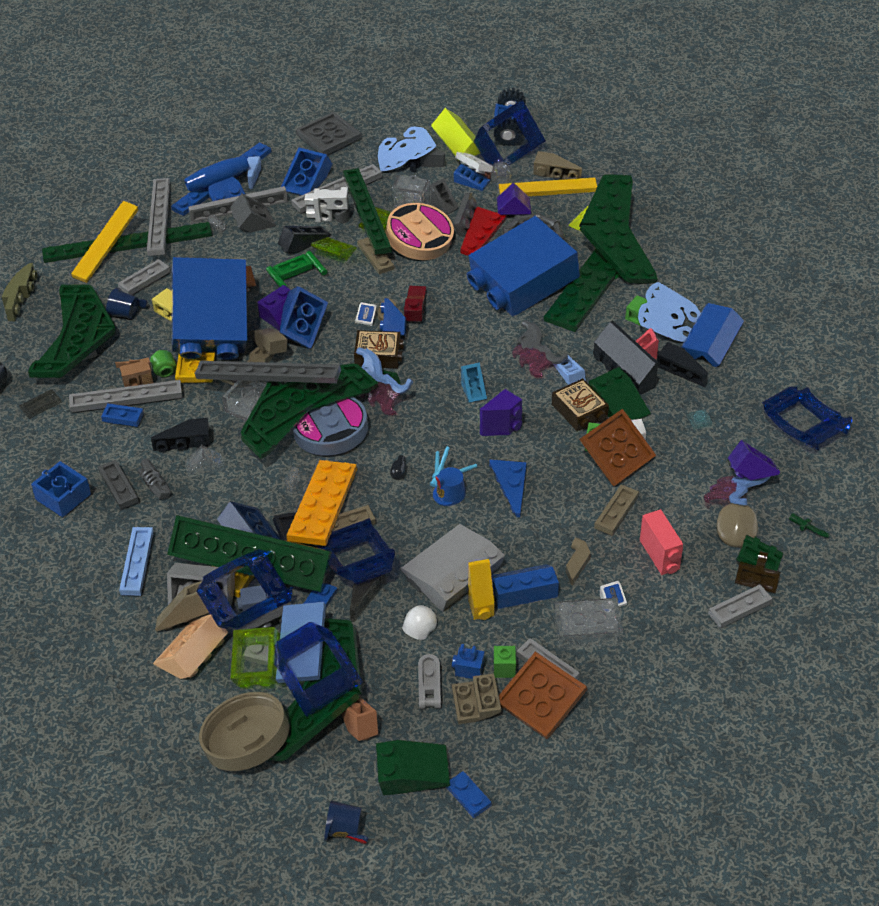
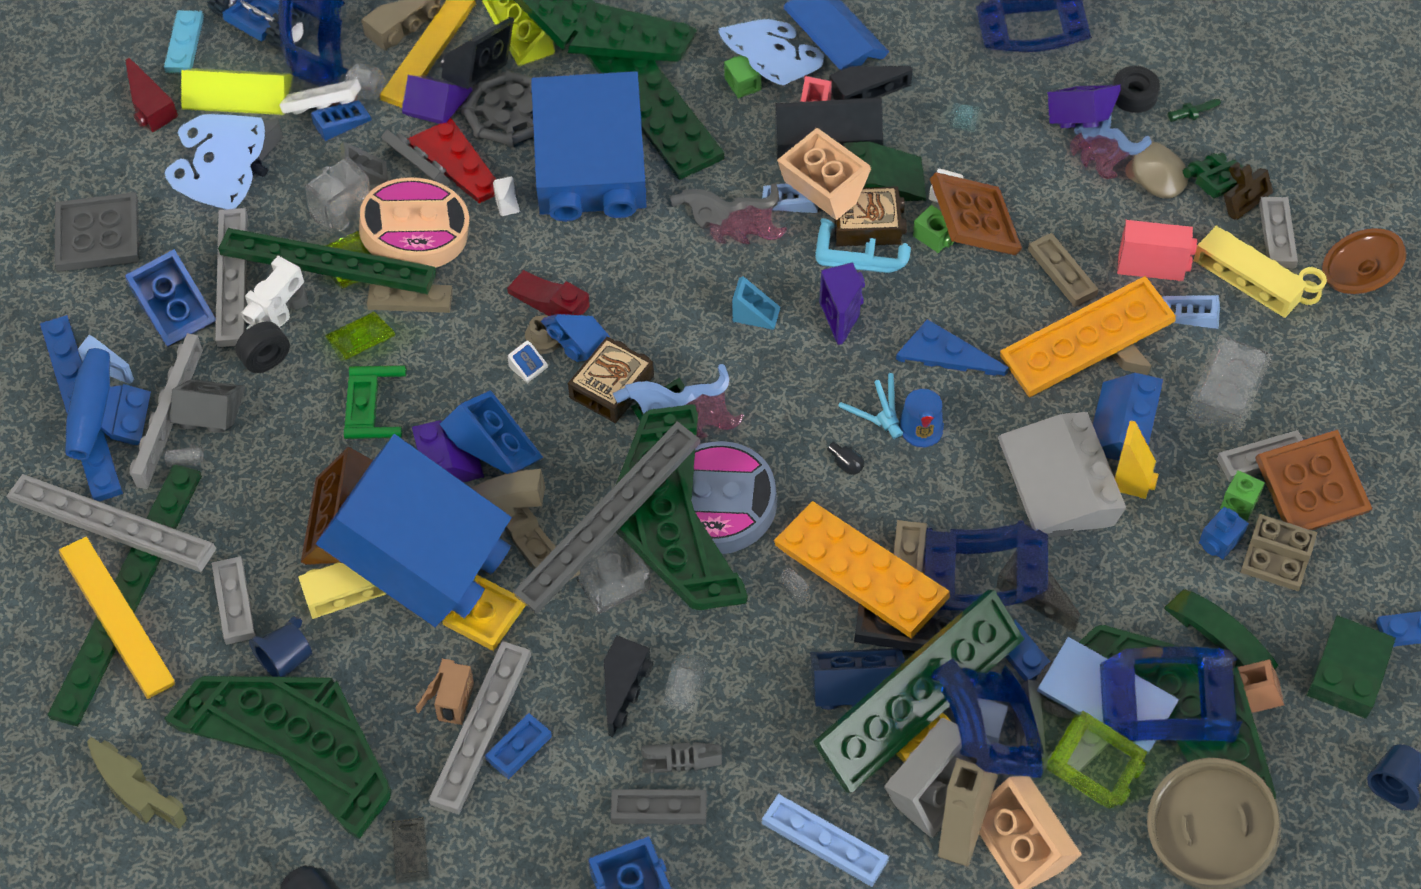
camera: 60 degrees left, 10 degrees up
(163, 363) = (450, 645): bright green head -> none
(300, 237) = (310, 364): black slope -> none
(301, 209) = (262, 347): none -> black tyre
(393, 694) = (1218, 627): none -> dark green slope
(419, 622) = (1124, 556): white hair -> none
(423, 109) = (150, 102): none -> dark red slope
(429, 681) = (1225, 589): light grey plate -> none
(464, 258) = (505, 196): none -> white slope
(474, 105) = (183, 41): none -> medium azure plate
(545, 415) = (861, 261): none -> medium azure piece
(549, 200) = (478, 56): none -> black slope
(569, 538) = (1087, 336): none -> light orange plate
(578, 362) = (825, 173): none -> light nougat slope
(613, 590) = (1193, 342): slope -> none
(639, 597) = (1203, 302): none -> light blue slope
(693, 608) = (1256, 273): none -> light yellow hinge
(747, 656) = (1364, 261): none -> dark orange dish
(799, 480) = (1138, 77): none -> black tyre

